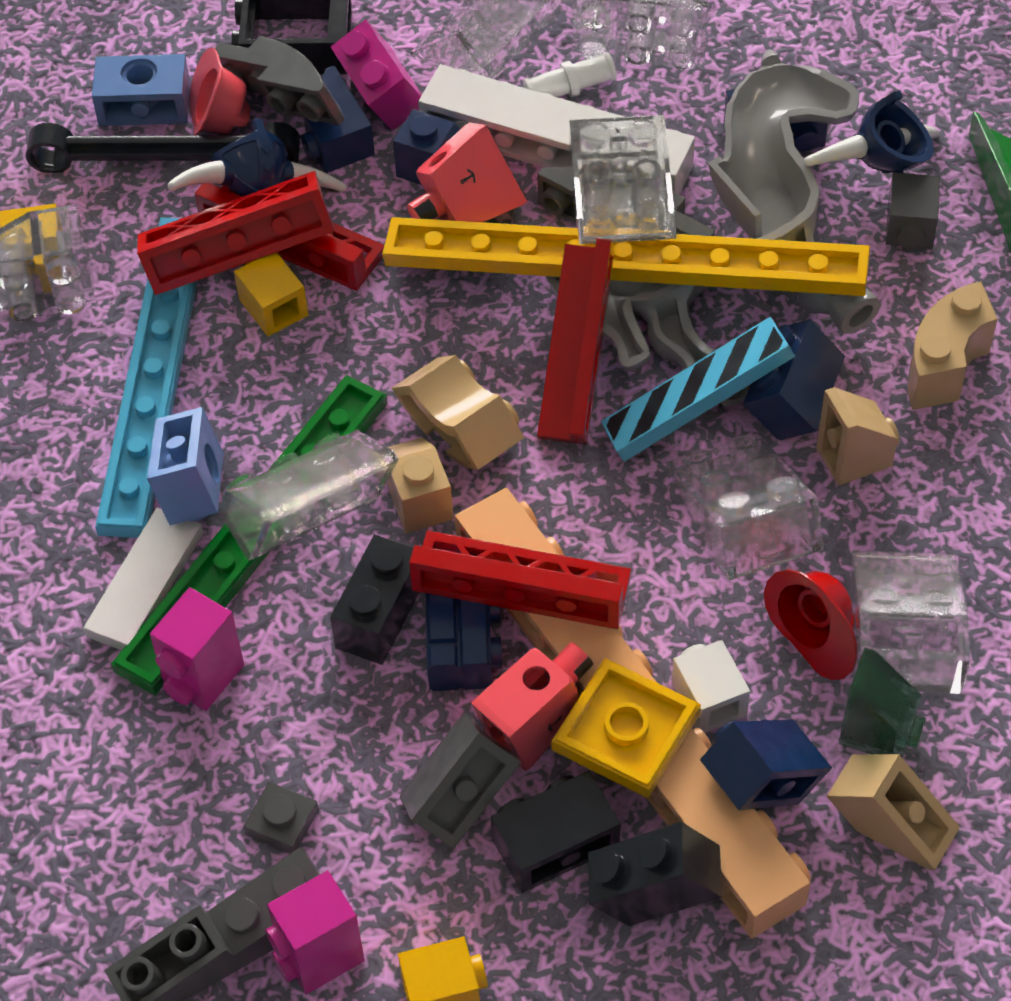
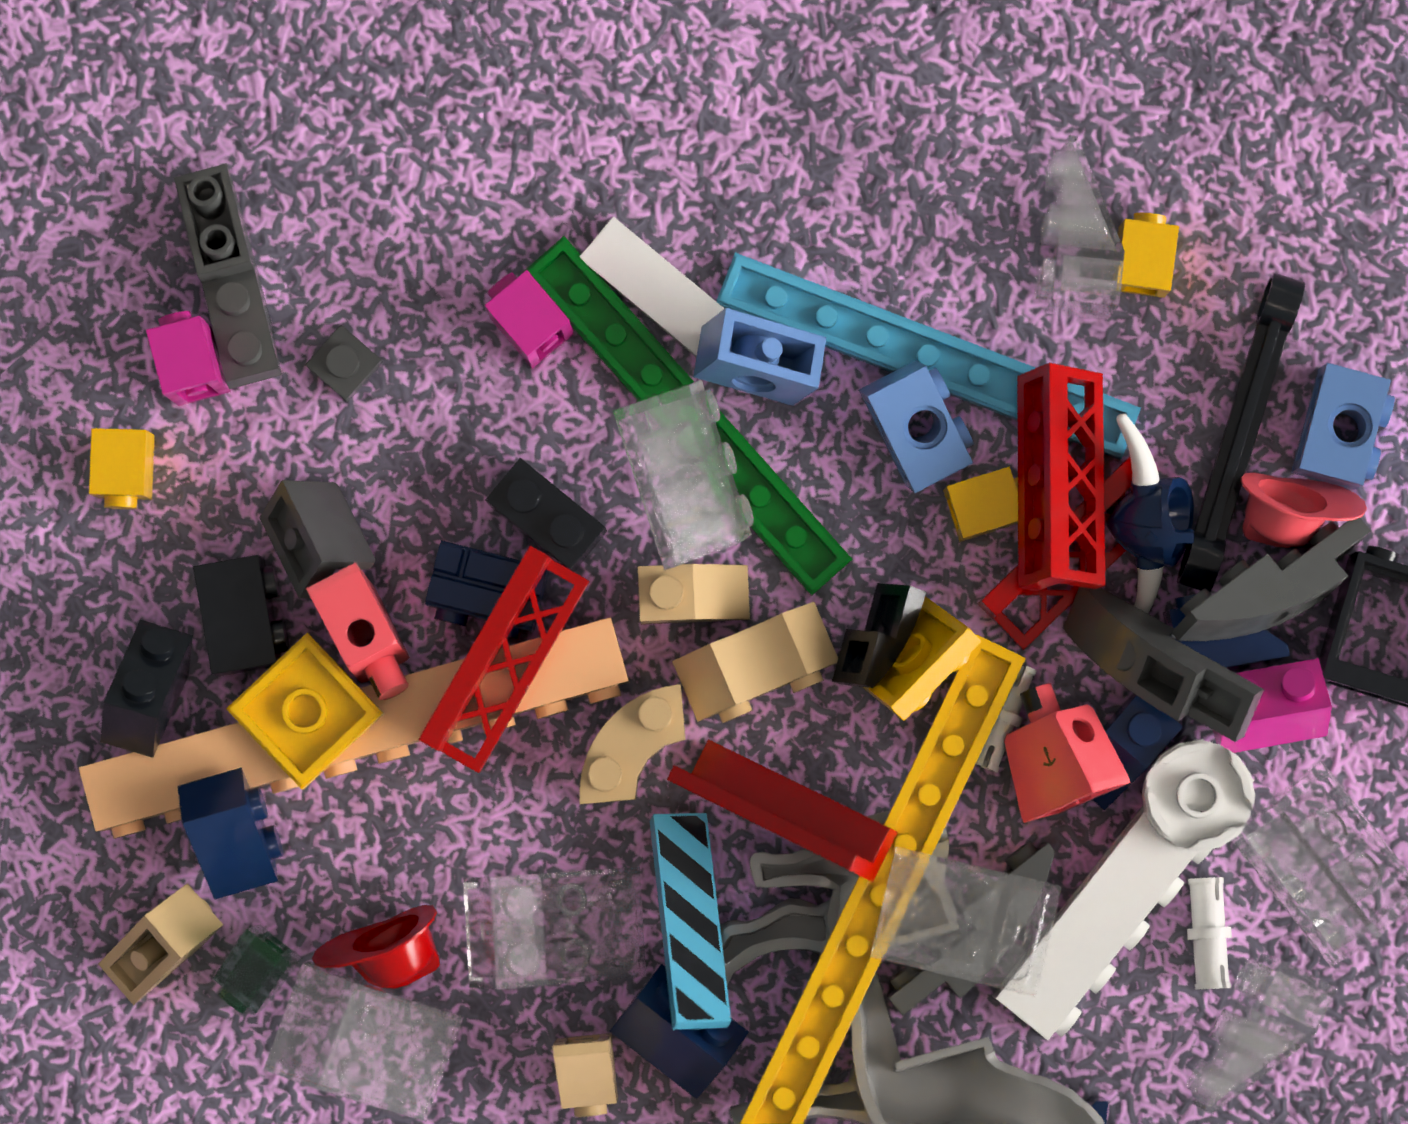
camera: 105 degrees right, 30 degrees up
(216, 348) = (893, 403): none -> medium blue brick
(367, 131) = (1157, 667): none -> dark grey slope
(406, 328) = (872, 652): none -> black slope
(416, 295) = (931, 654): none -> yellow plate
(464, 87) = (1198, 795): none -> white tile
(563, 482) = (629, 742): none -> tan brick
(714, 681) = (348, 815): white brick -> none

